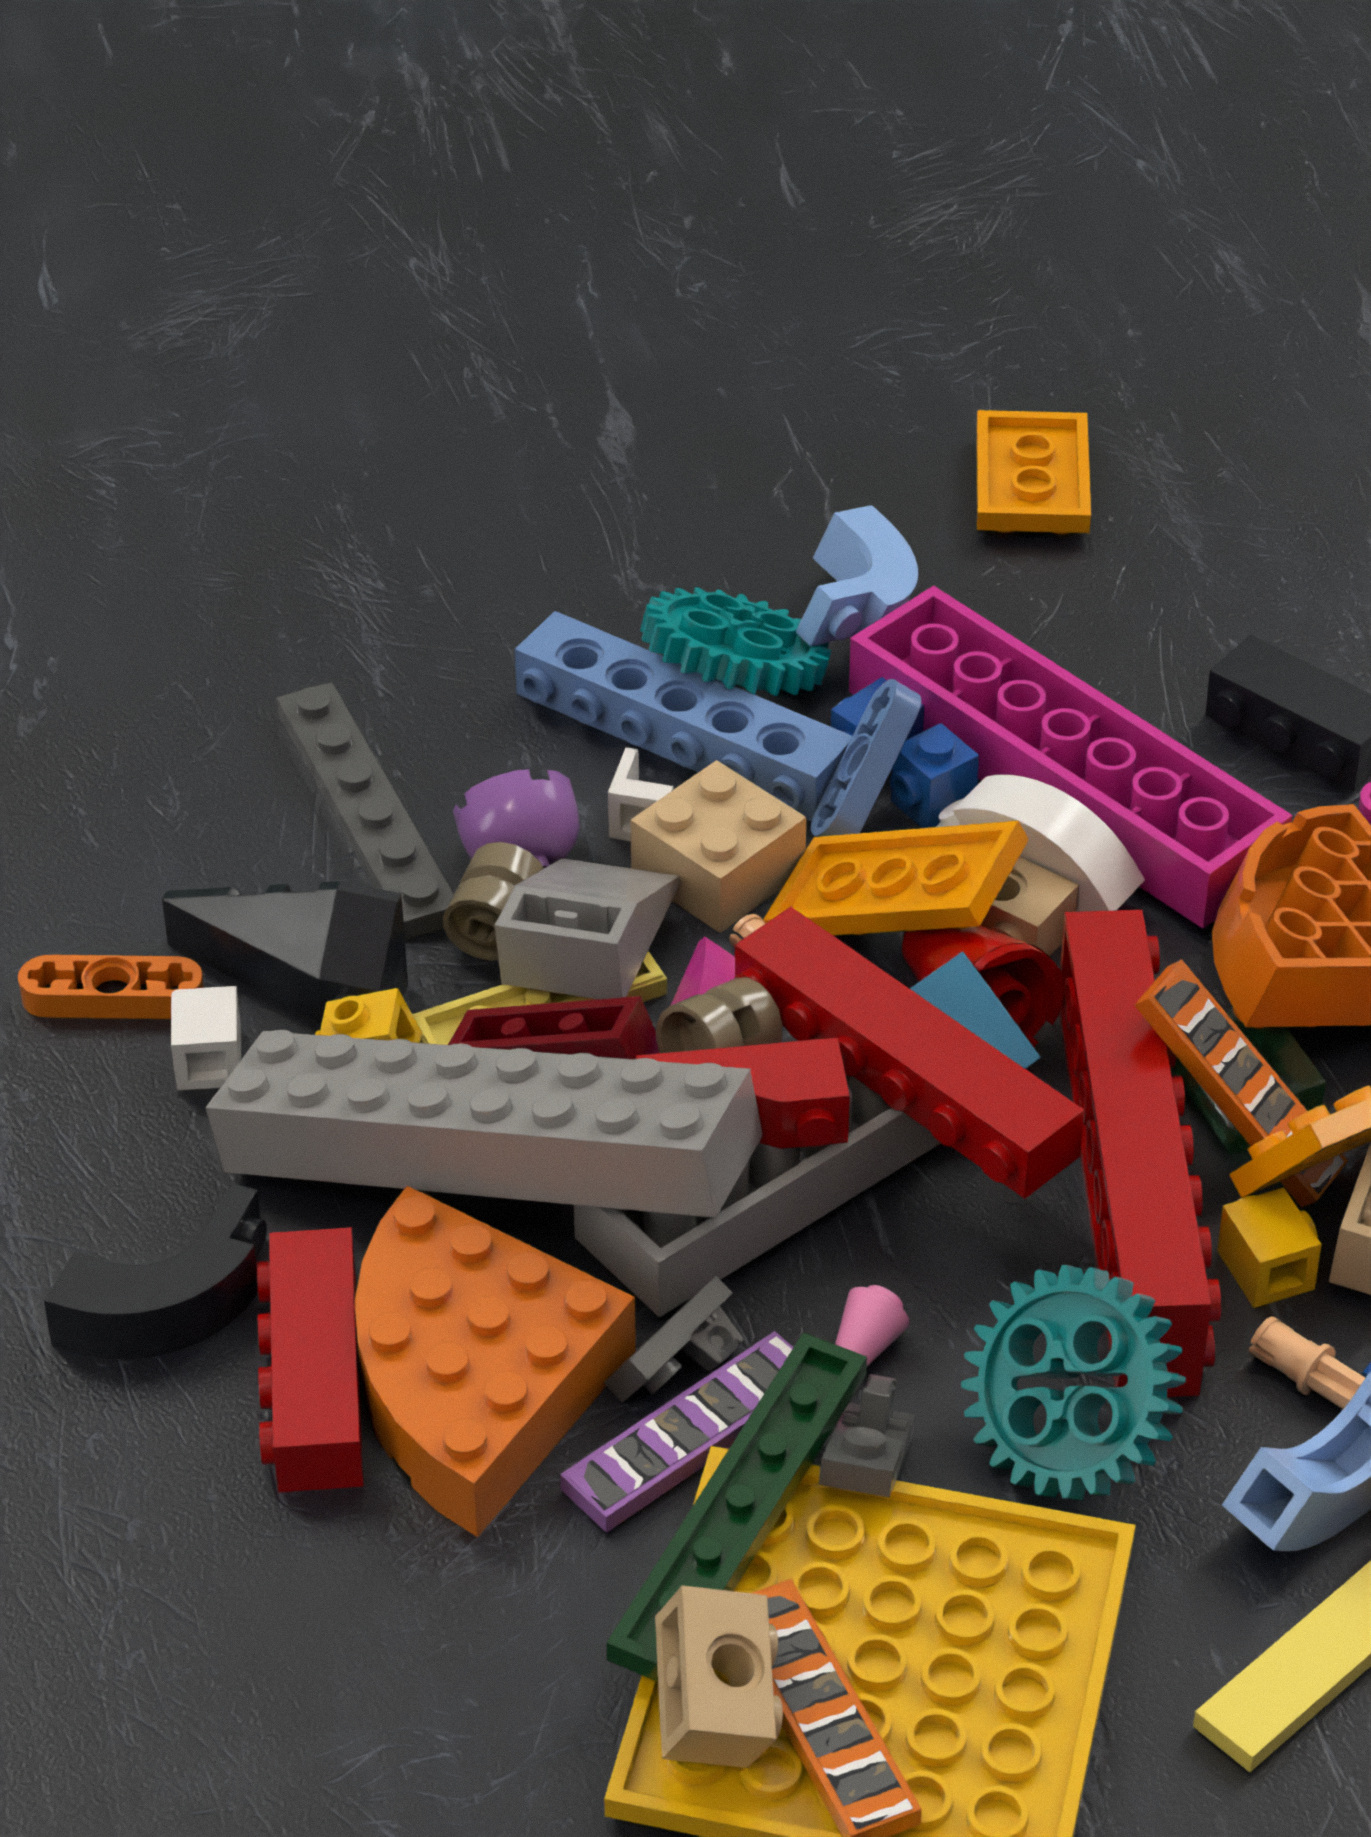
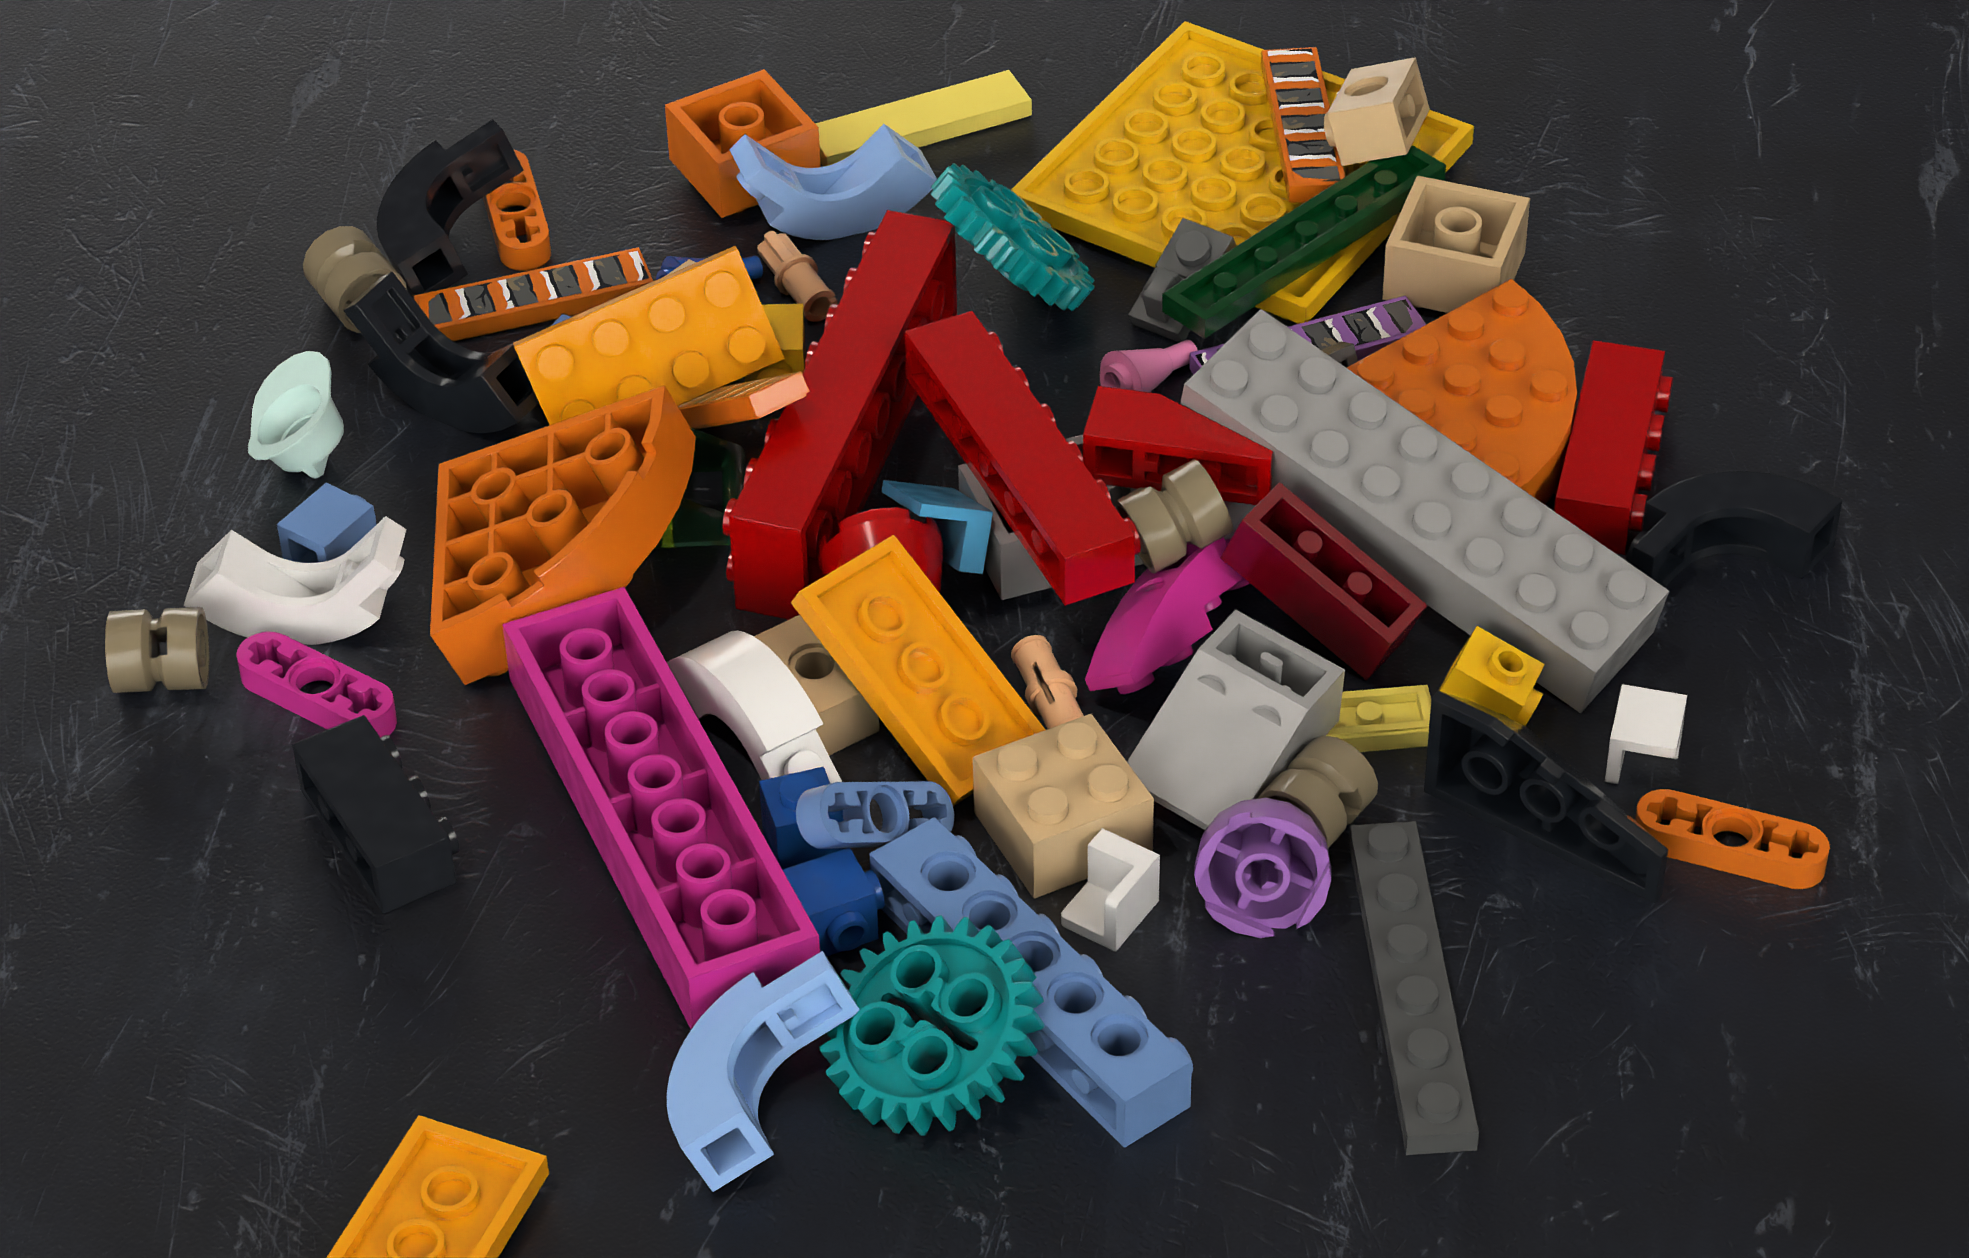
camera: 160 degrees left, 0 degrees up
(557, 1557) = (1453, 244): none -> tan brick

